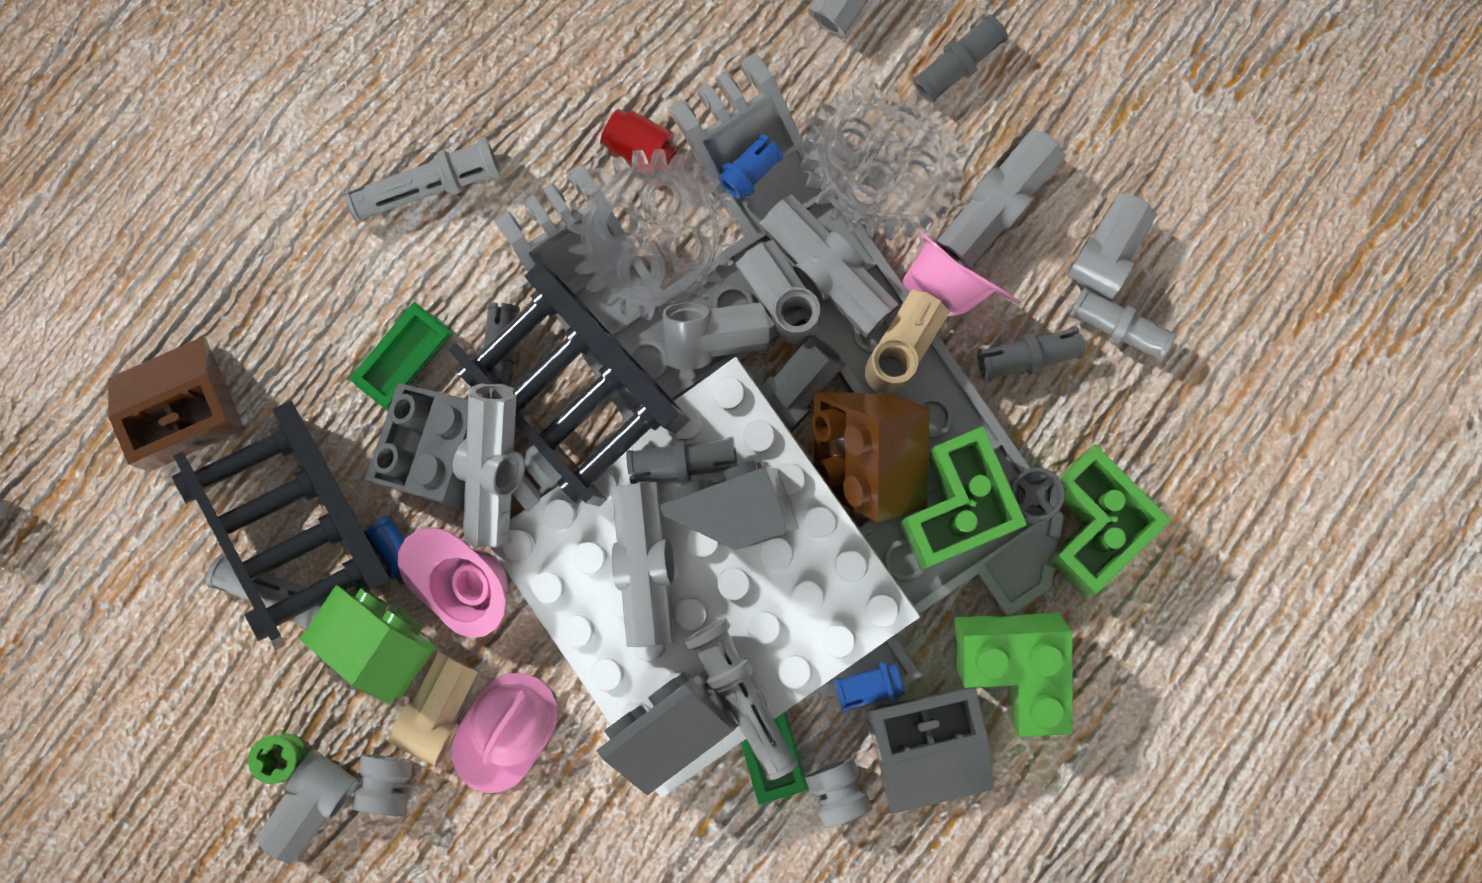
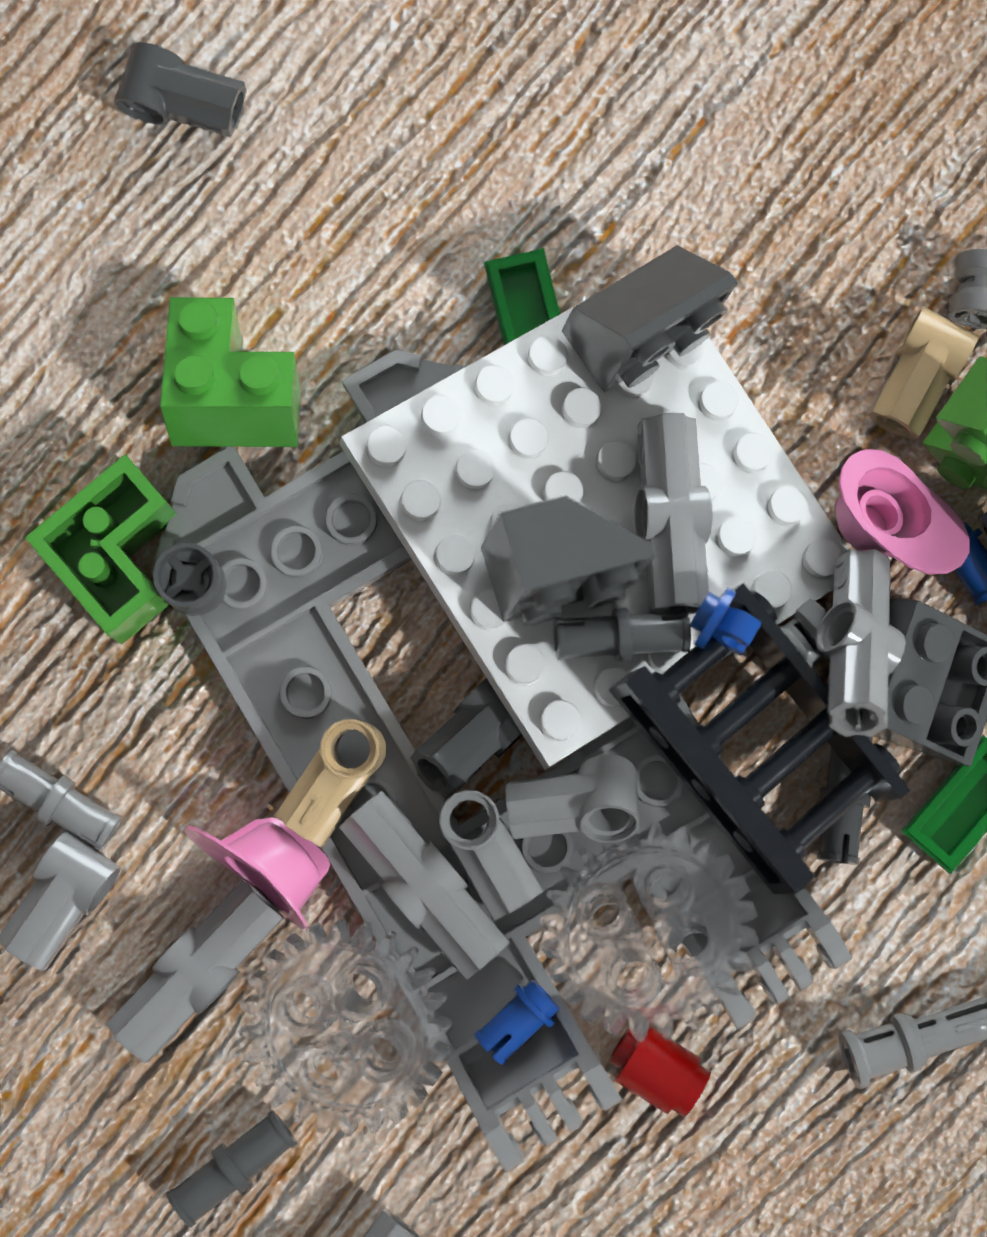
camera: 175 degrees left, 0 degrees up
(504, 732) = (839, 348): bright pink piece -> none
(607, 471) = (726, 624): none -> blue plate
(730, 676) = (571, 376): light grey pin -> none
(839, 795) = (448, 251): light grey wheel -> none
(869, 687) = (406, 365): blue pin -> none
(873, 451) = (384, 643): reddish brown slope -> none
(931, 748) = (338, 300): dark grey slope -> none
(976, 504) = (263, 560): bright green brick -> none
(1030, 353) = (174, 768): dark grey pin -> none

